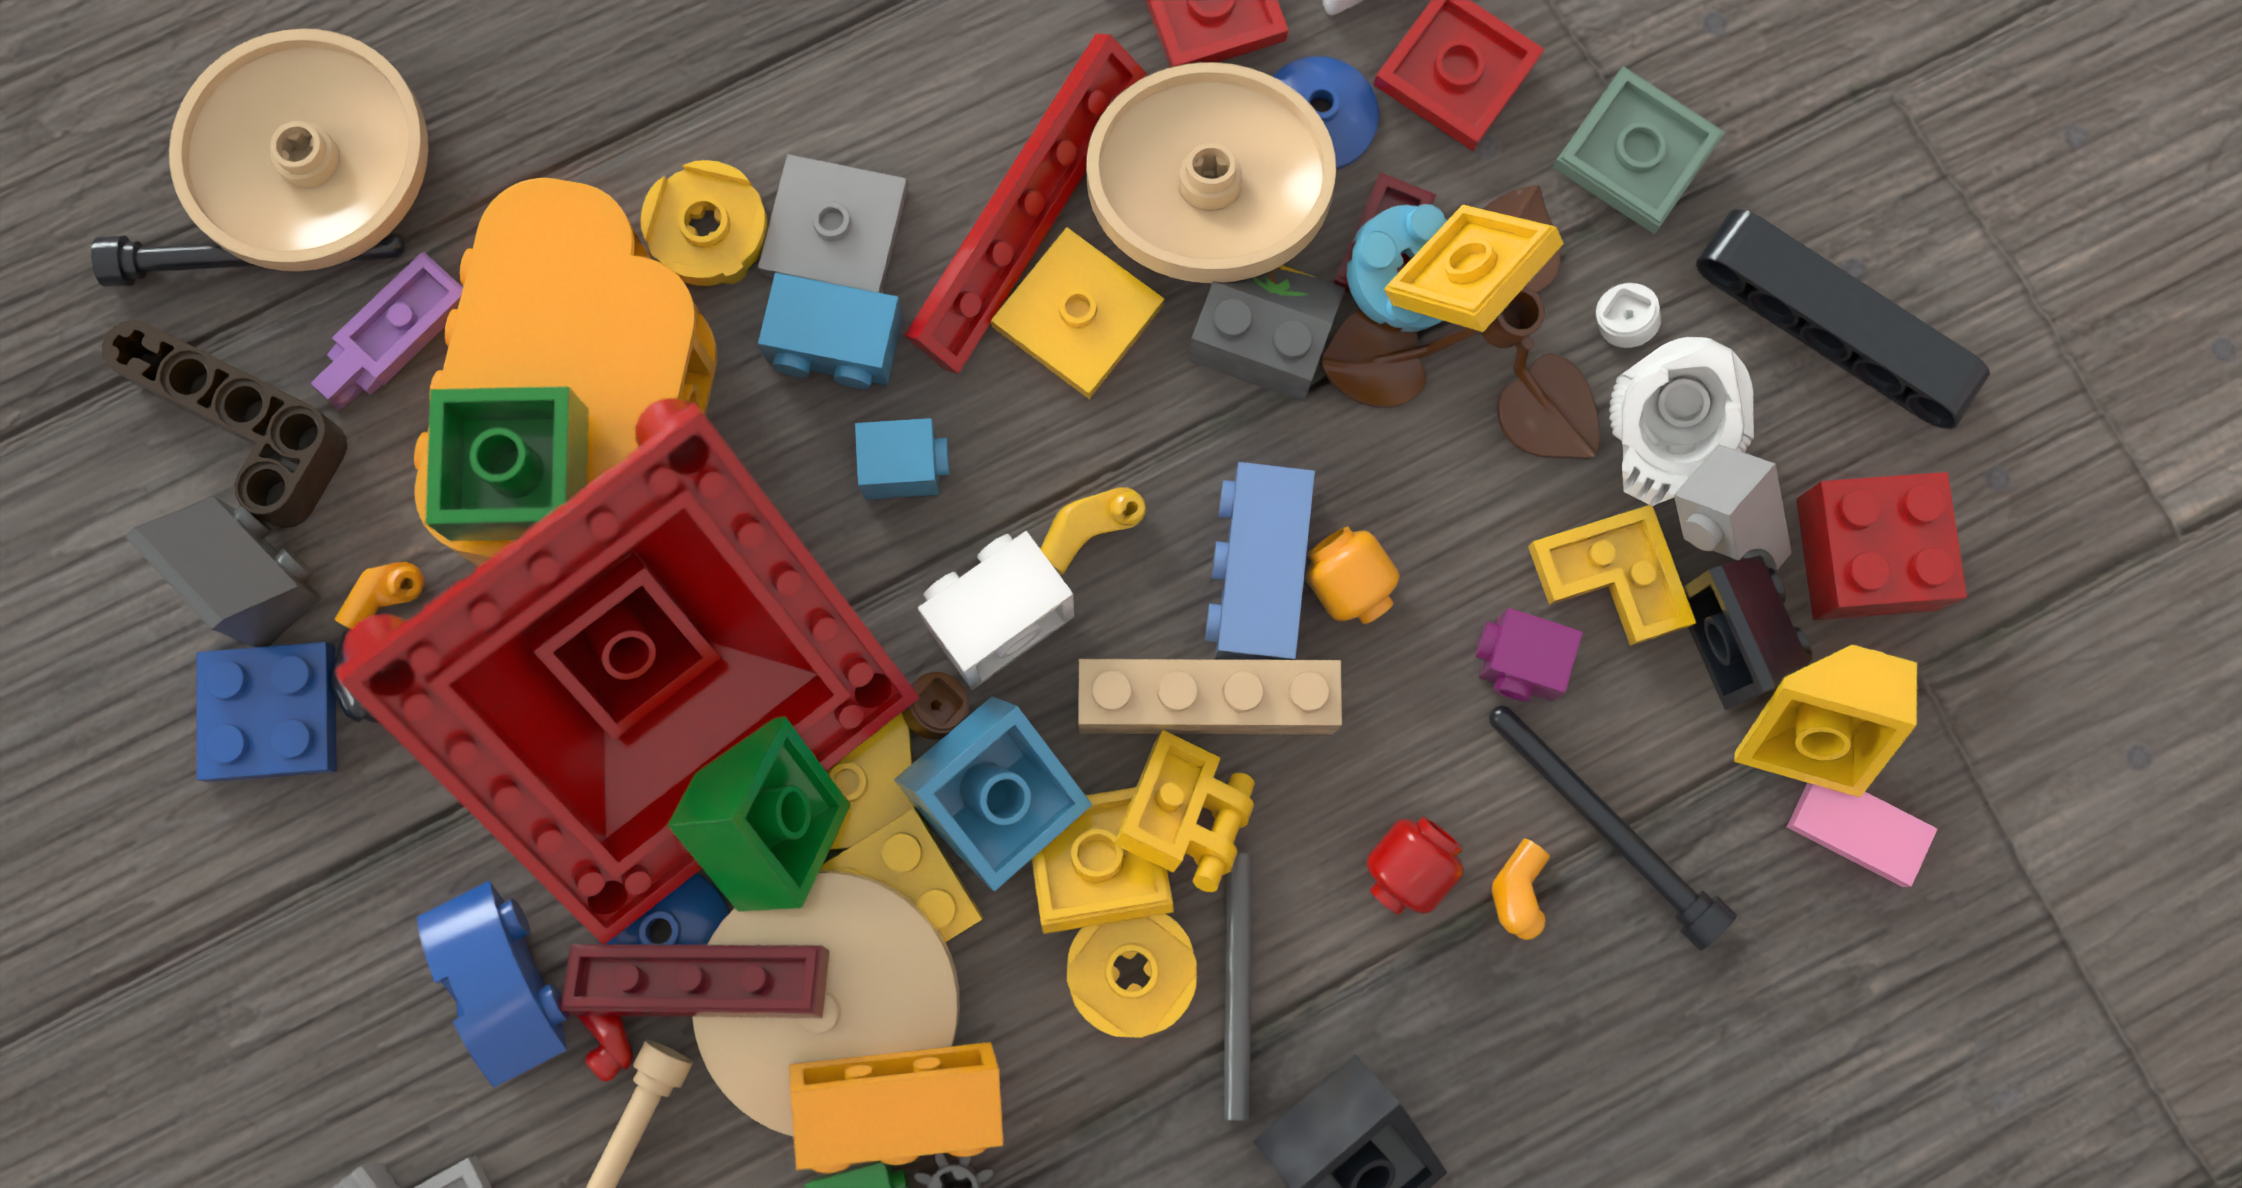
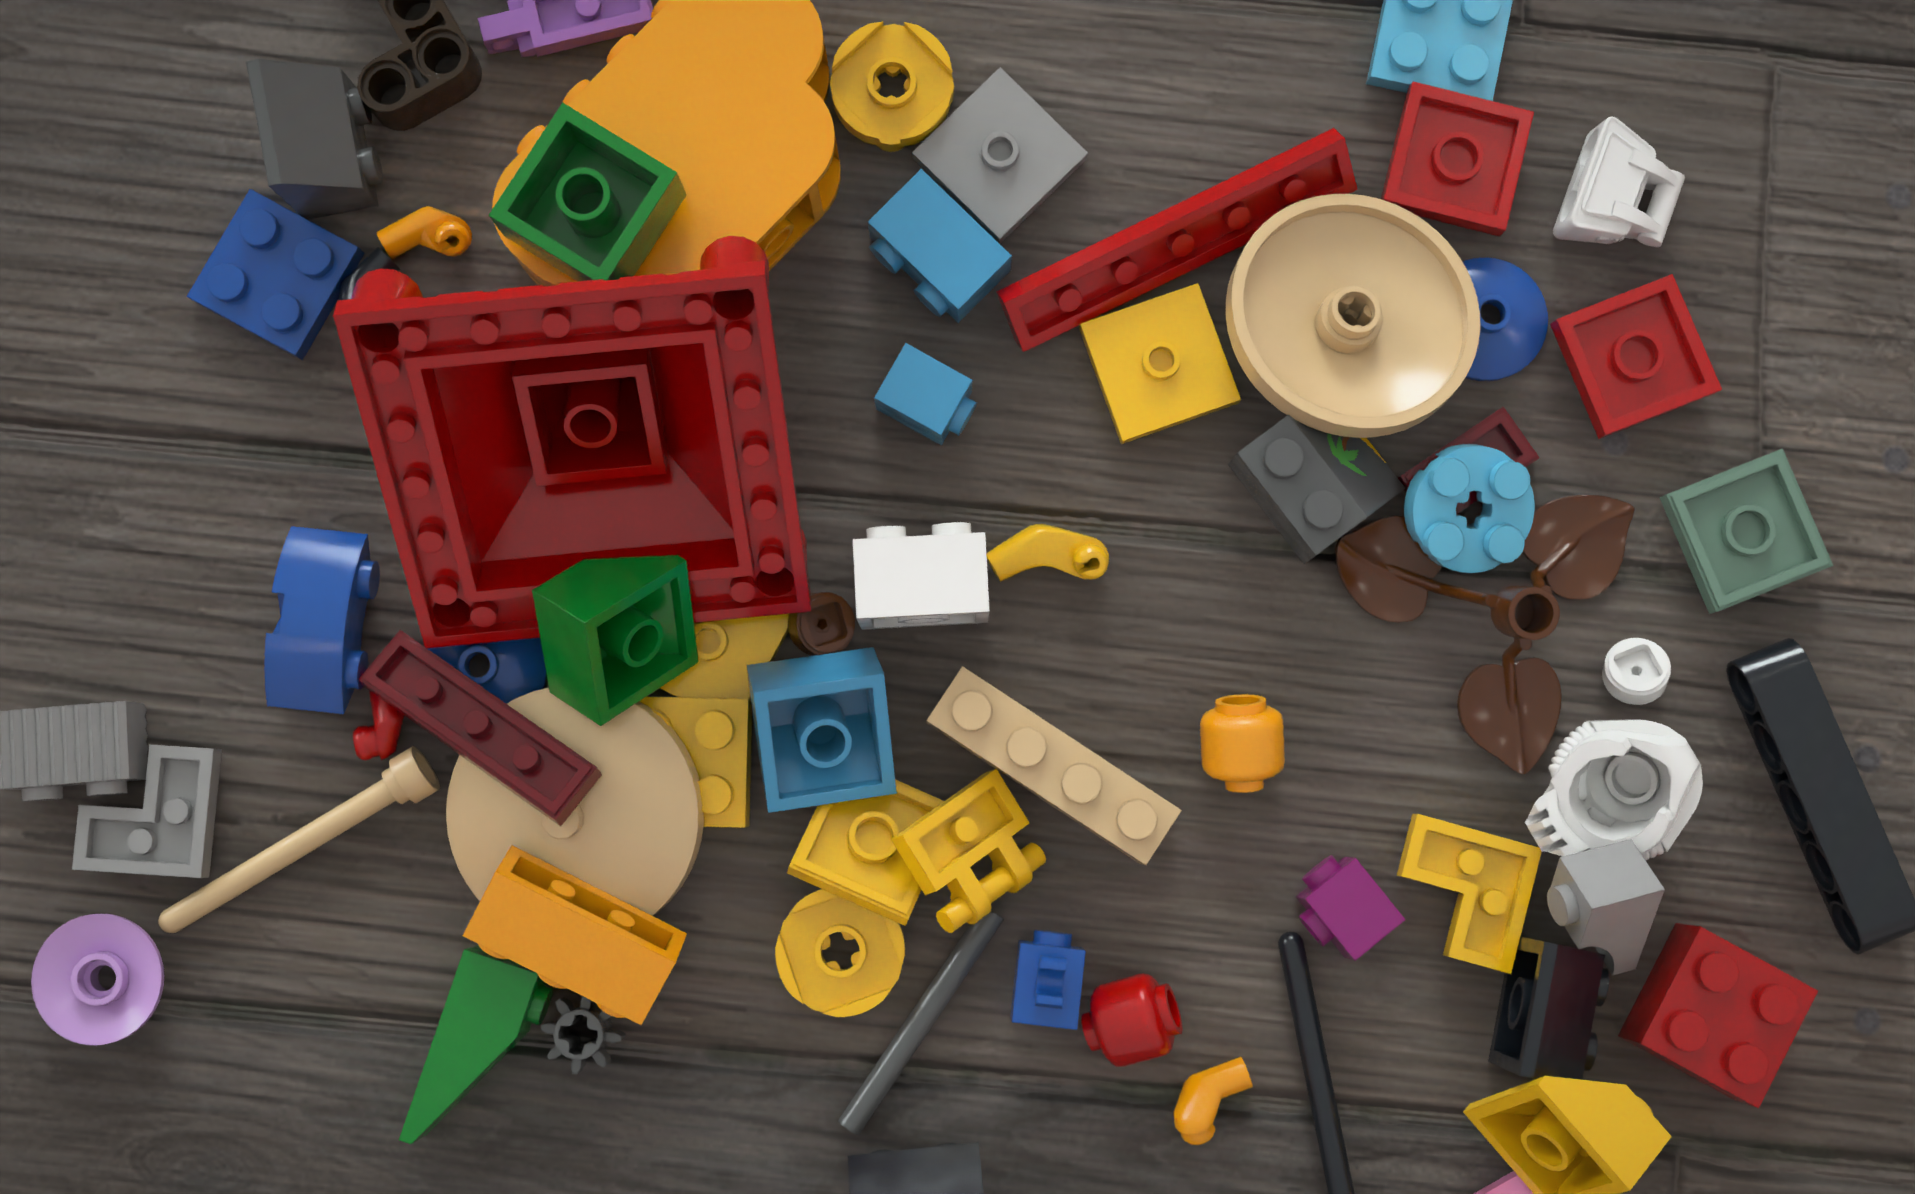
camera: 35 degrees right, 5 degrees up
(1261, 563) = (1171, 682): medium blue brick -> none
(1323, 879) = (1048, 981): none -> blue brick
(1473, 267) = (1520, 548): yellow plate -> none

